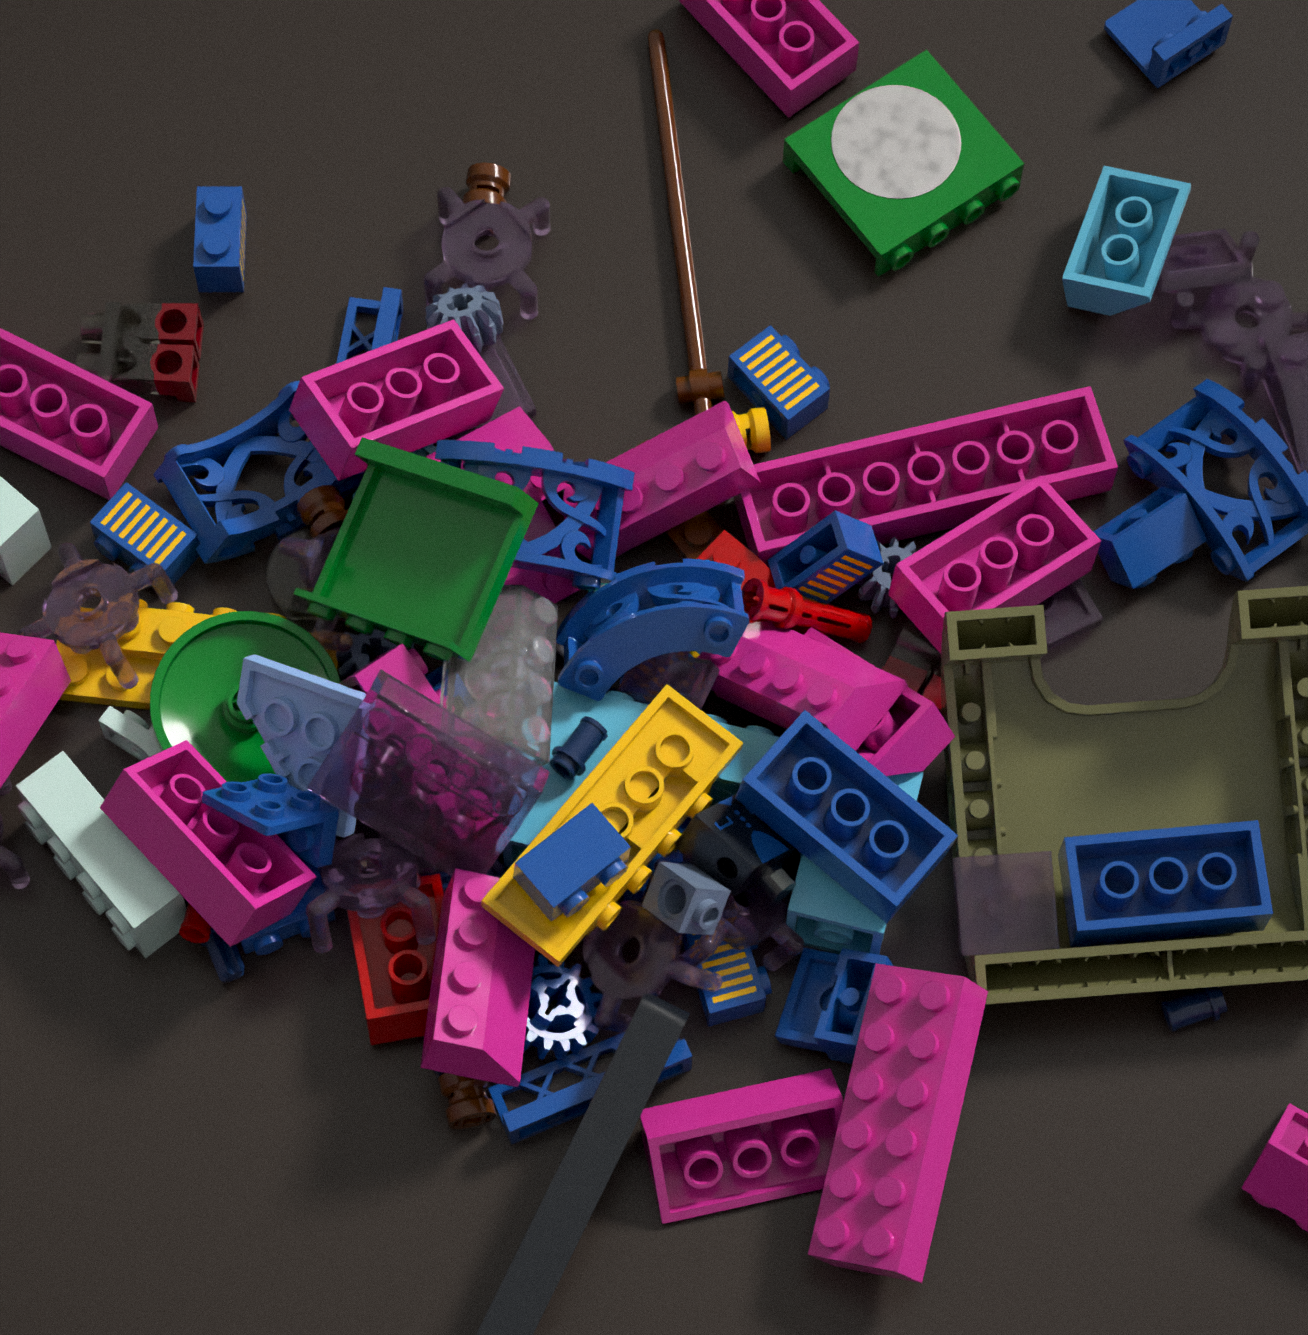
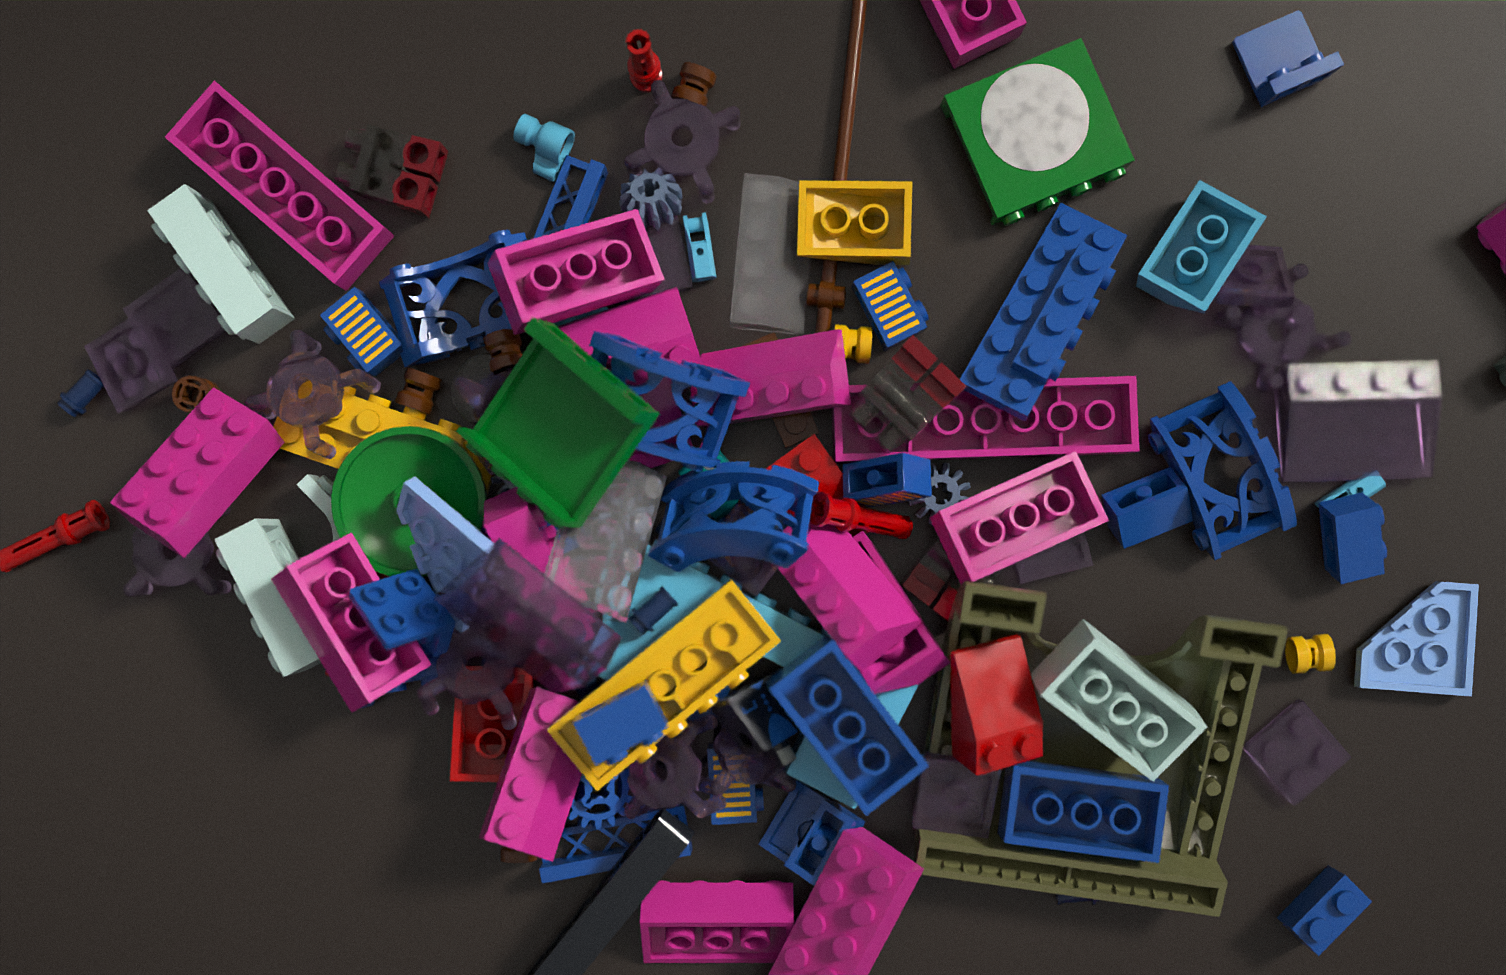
camera: 15 degrees right, 20 degrees up
(220, 239) = (471, 83): blue brick -> none
(226, 586) = (416, 399): none -> reddish brown wheel
(328, 285) = (550, 141): none -> medium azure piece
(423, 174) = (642, 60): none -> red pin
(534, 368) = (699, 252): none -> medium azure bar
(623, 353) = (768, 274): none -> clear slope
(686, 898) = (708, 755): sand blue brick -> none
(716, 292) = (855, 221): none -> yellow slope
(824, 452) = (896, 404): none -> clear smoke hips
(962, 344) = (1044, 312): none -> blue plate
(1020, 775) = (994, 706): none -> red slope
(1169, 736) = (1117, 700): none -> light aqua brick

